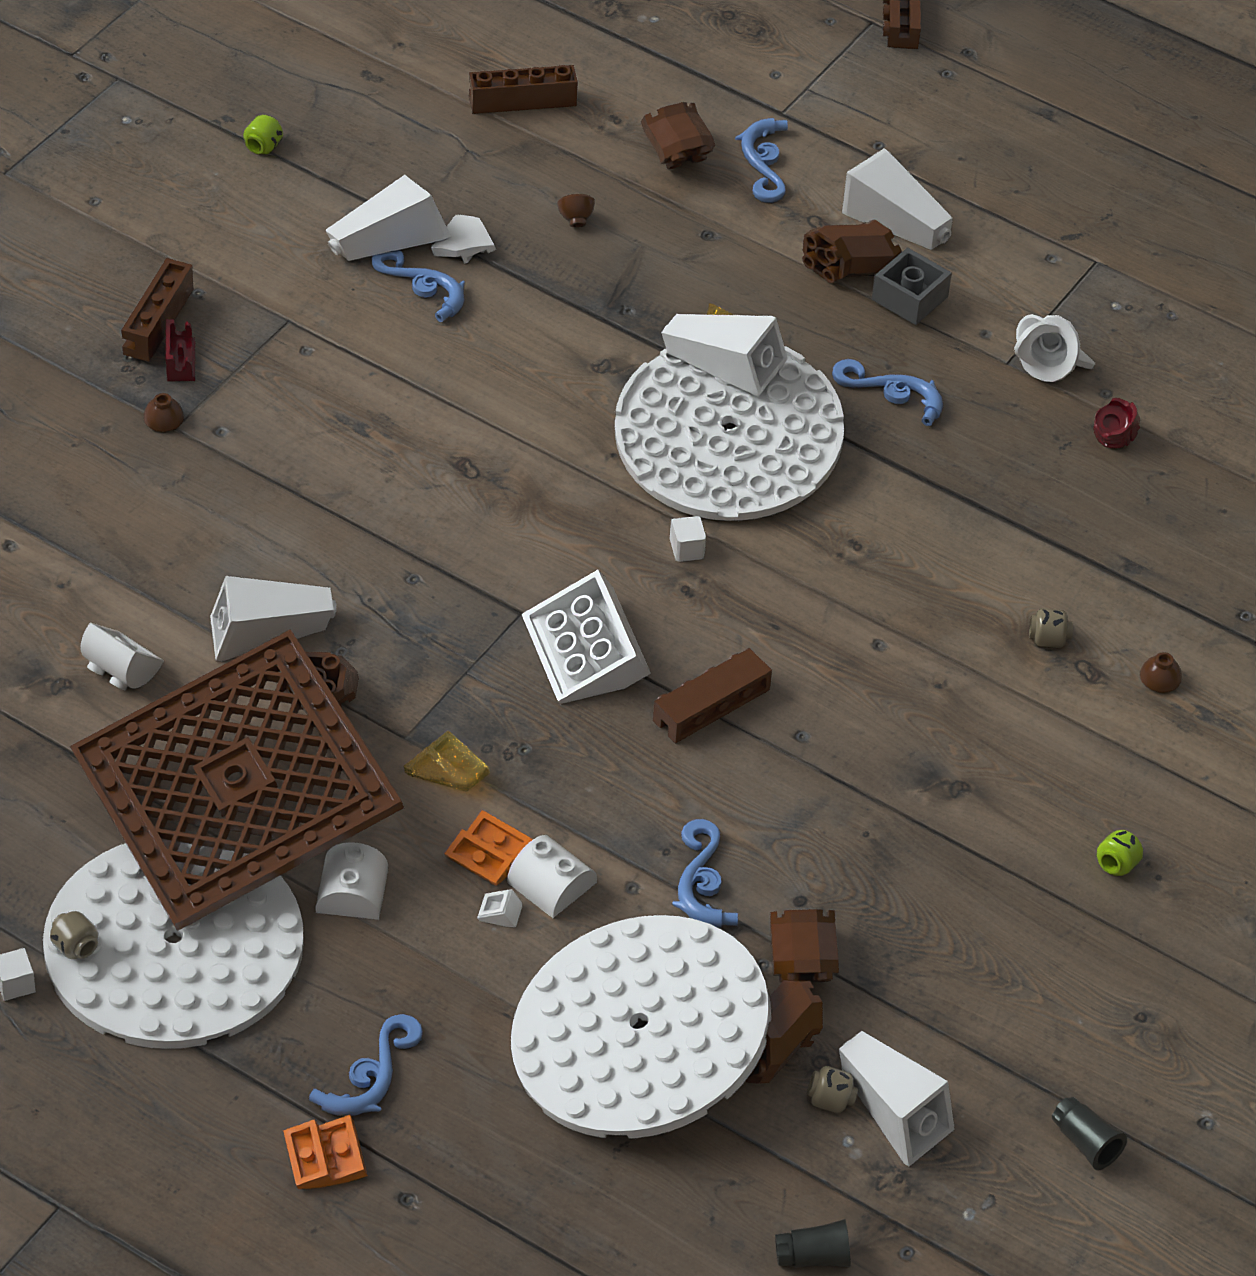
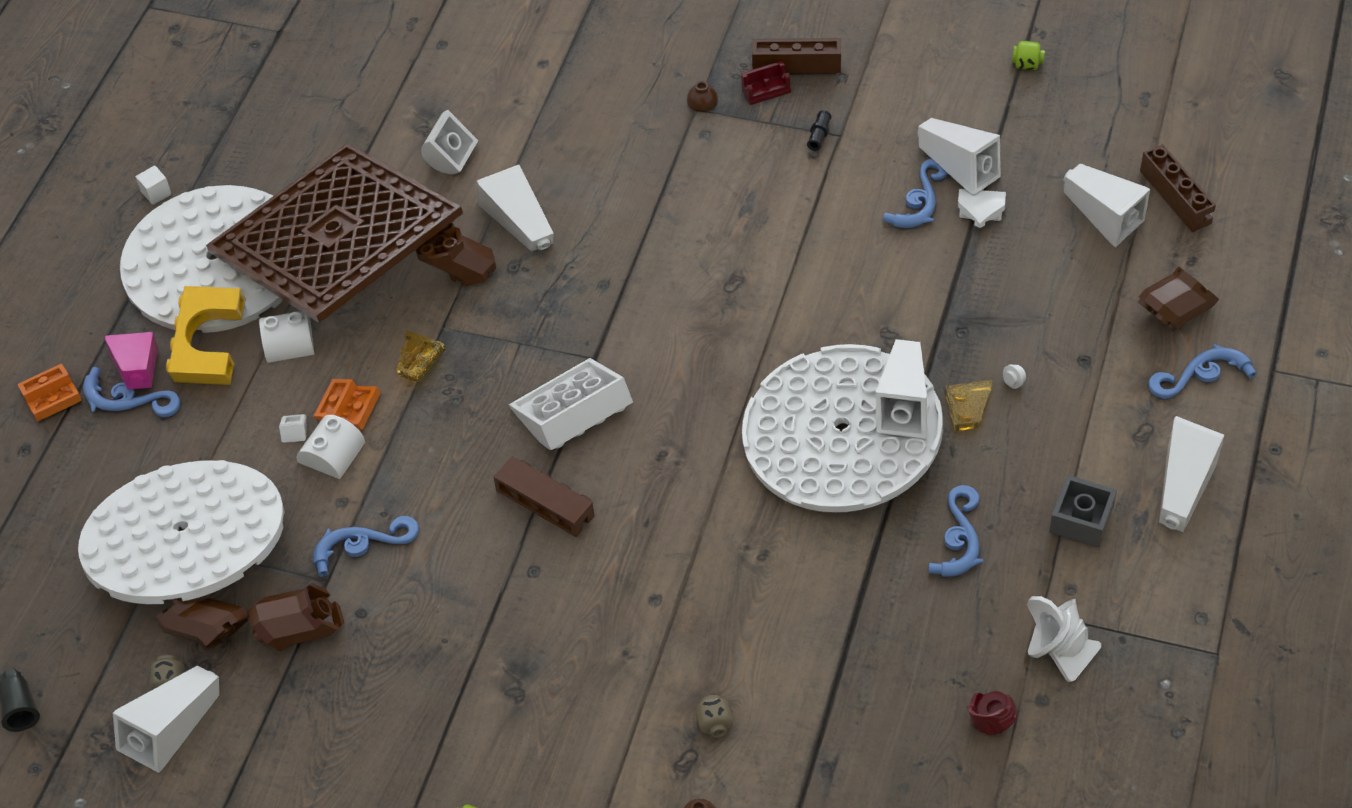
camera: 80 degrees right, 5 degrees up
(74, 935) = (184, 199): dark tan head -> none
(279, 329) = (819, 130): none -> black pin
(324, 1043) = (134, 358): none -> dark pink slope
(350, 988) = (197, 307): none -> yellow arch
(521, 140) = (1107, 201): none -> white slope
(576, 208) = (1052, 262): reddish brown brick -> none
(687, 538) = (708, 436): white piece -> none
(713, 285) = (1014, 376): none -> white plate
(849, 250) = (1097, 451): reddish brown brick -> none

